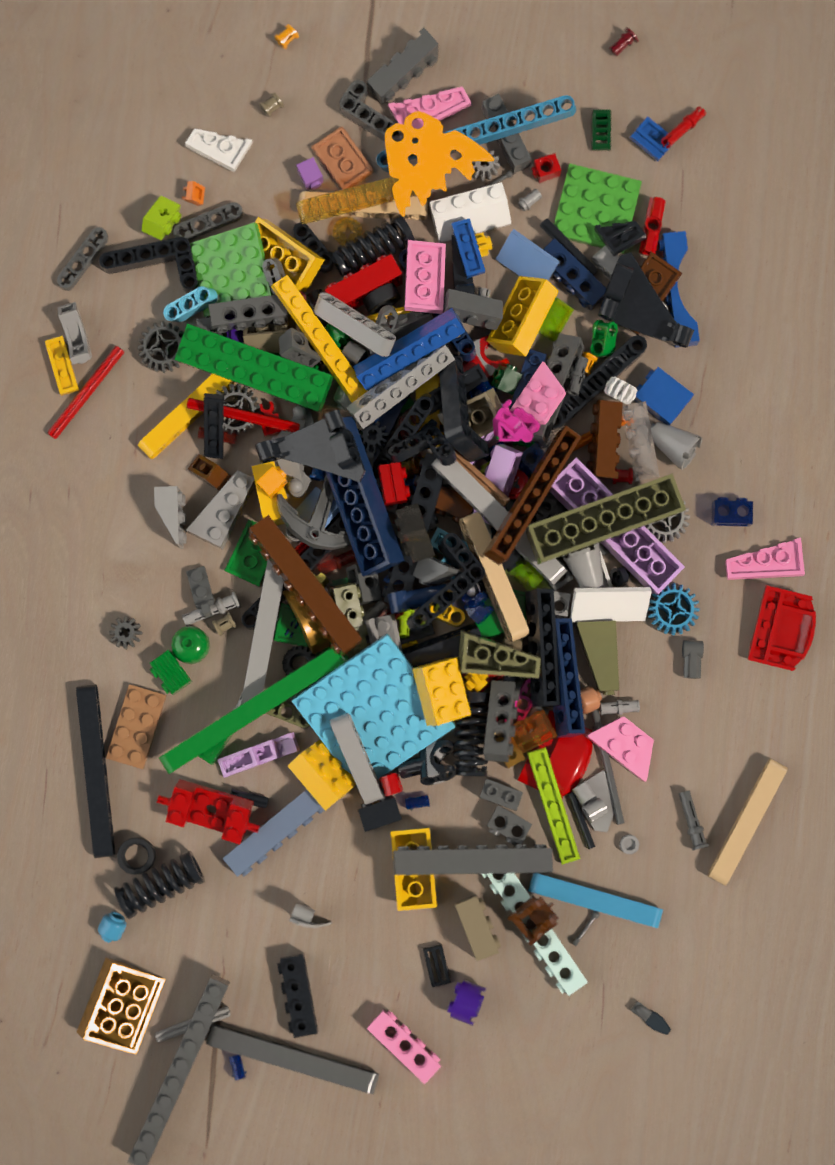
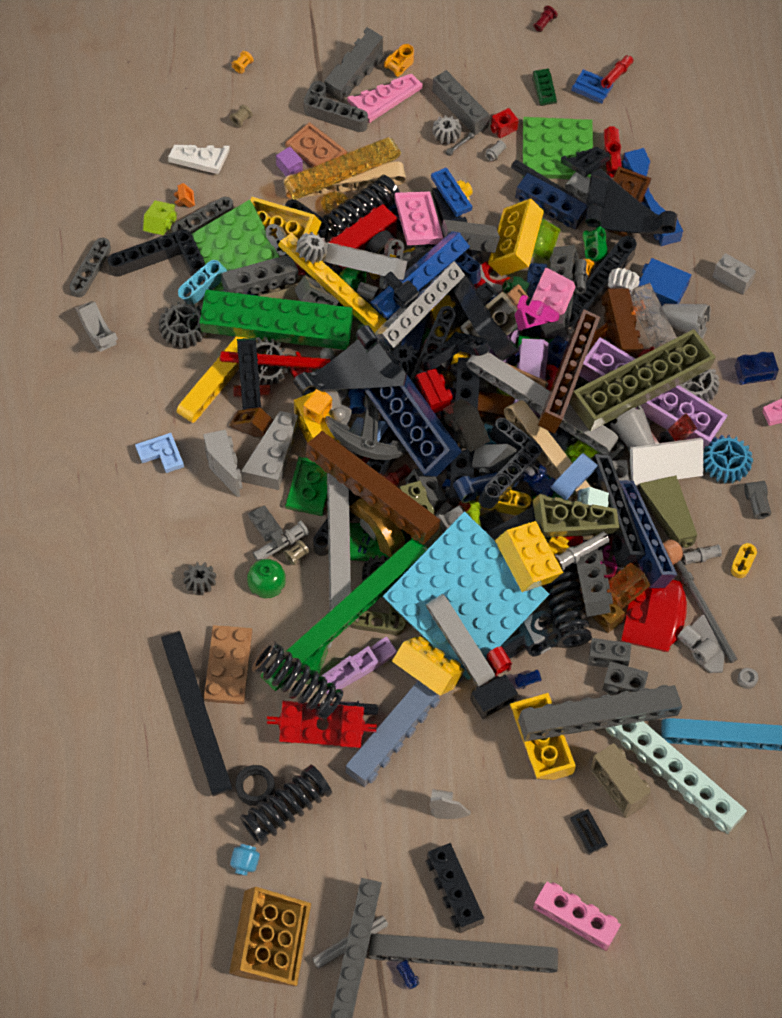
camera: 15 degrees left, 20 degrees down
(62, 365) = (88, 357): yellow plate -> none
(85, 392) = (115, 377): red axle -> none
(116, 482) = (163, 448): none -> light blue plate
(170, 672) = (252, 606): green brick -> none
(186, 780) = (323, 710): none -> black piece
(295, 298) = (312, 247): none -> light grey gear
(383, 375) = (404, 292): none -> black beam
(432, 155) = (401, 125): light orange piece -> none
(451, 69) = (400, 59): none -> light orange piece
(467, 1002) = (629, 855): dark purple brick -> none
(484, 206) = (459, 158): white slope -> none
(486, 694) = (573, 554): none -> light grey pin
(502, 122) = (439, 94): dark azure beam -> none
(505, 390) = (516, 293): none -> medium nougat tile
(509, 611) = (574, 476): none -> medium blue beam
(521, 639) = (593, 496): none -> light aqua brick
(526, 257) = (503, 191): medium blue tile -> none
(540, 914) = (682, 749): reddish brown piece -> none
(553, 805) = (664, 653): lime tile -> none
(581, 820) = (694, 665): black bar -> none
(595, 915) = (734, 751): dark grey hinge -> none
(626, 745) = (718, 587): bright pink wing -> none
(632, 577) = (682, 428): none -> clear red plate
(663, 724) = (740, 559): none -> yellow beam
(740, 399) = (734, 273): none -> light grey brick

